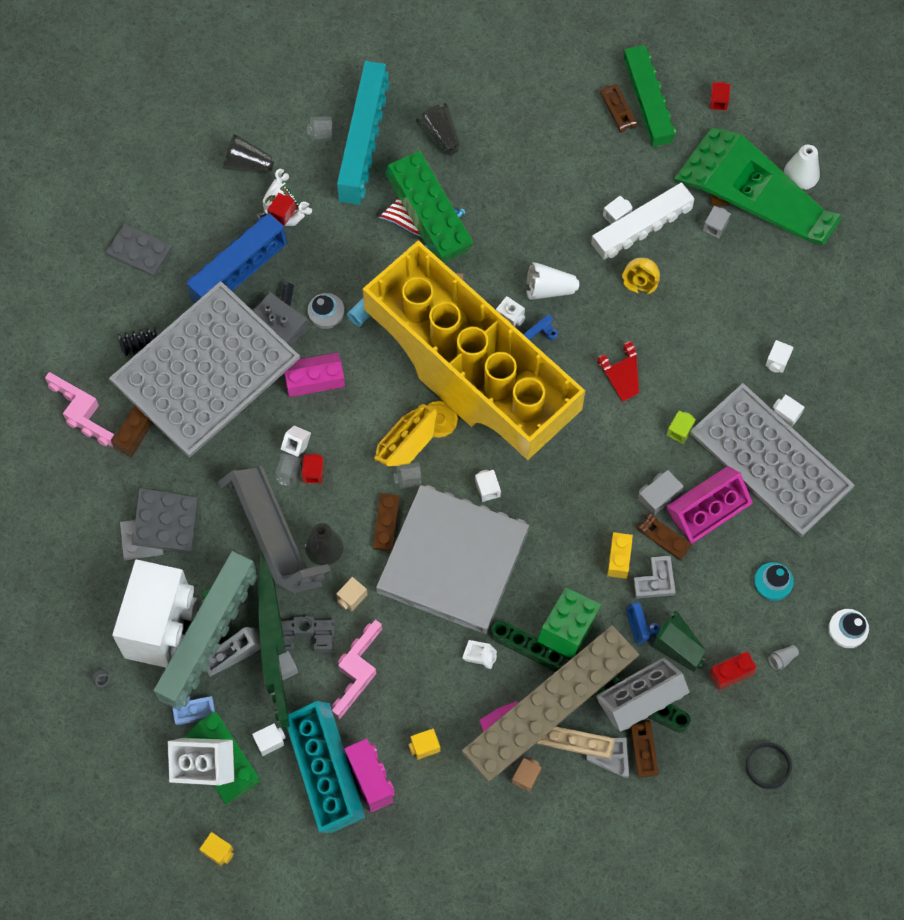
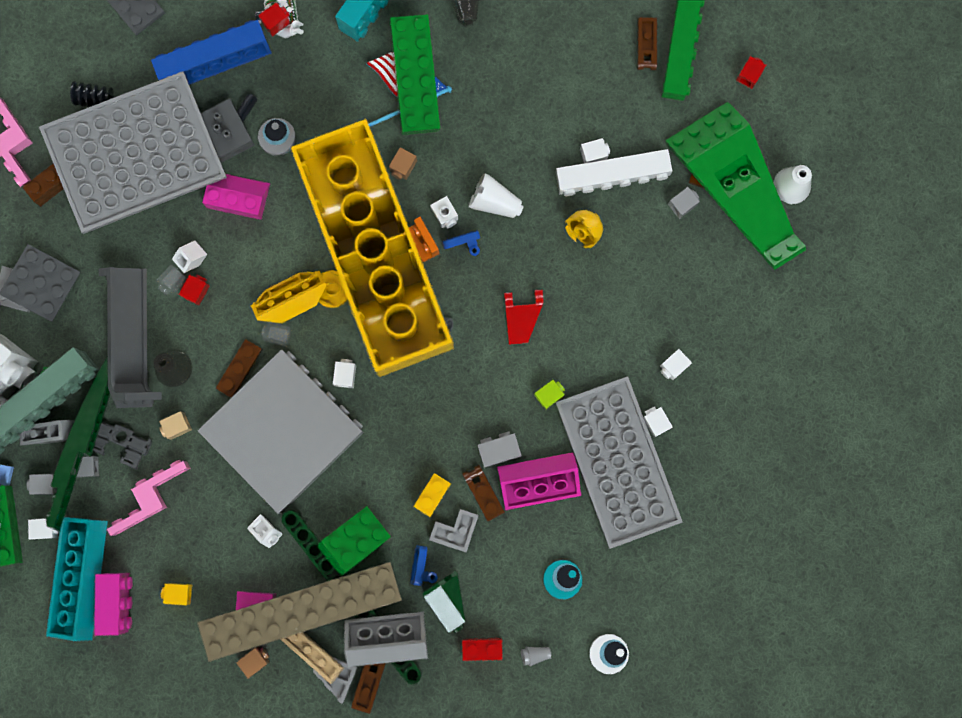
camera: 25 degrees right, 15 degrees up
(249, 699) = (40, 484): none -> light grey brick

